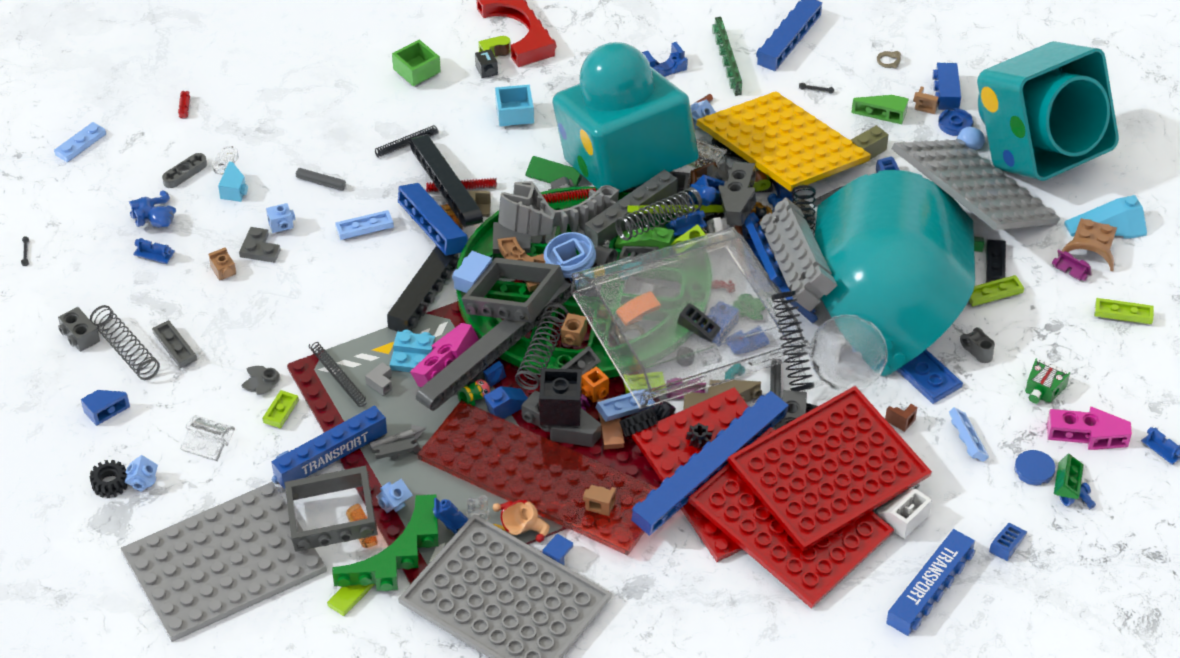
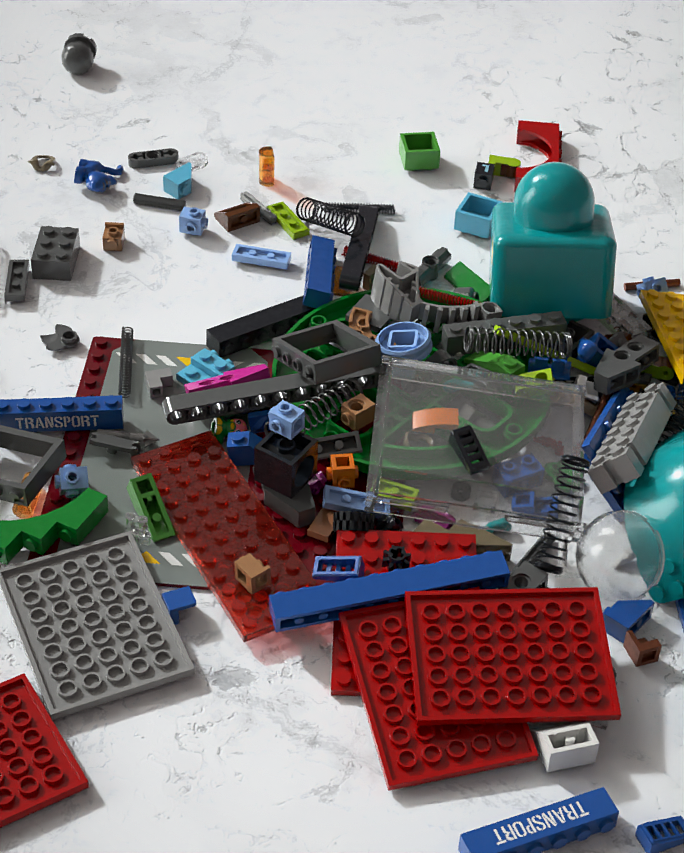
camera: 30 degrees right, 5 degrees down
(23, 92) = (78, 54): none -> dark grey tile
(80, 142) = (92, 107): light blue plate -> none
(82, 223) = (46, 166): none -> dark tan piece
(155, 251) = (69, 205): blue hinge -> none
(184, 104) = (199, 111): red axle -> none
(187, 303) = (55, 253): none -> dark grey brick
(229, 211) = (156, 201): none -> dark grey axle
(256, 247) = (158, 236): dark grey plate -> none
(280, 409) = (52, 368): lime plate -> none
(301, 136) = (266, 166): none -> clear orange brick
(309, 203) = (238, 216): none -> reddish brown tile
(356, 179) = (289, 221): none -> lime tile
(431, 162) = (317, 207): none -> black piece
(449, 515) = (101, 518): blue hinge -> none
(467, 484) = (148, 502): none -> bright green slope
(470, 271) = (304, 319): light blue brick -> none
(511, 170) = (432, 265): none -> dark grey piece
(521, 517) = (171, 556): light nougat piece -> none
(551, 364) = (286, 419): none -> light blue brick
(663, 470) = (348, 562): none -> blue slope
(675, 63) = (666, 243): blue piece -> none
(878, 394) = (627, 616): none -> blue slope

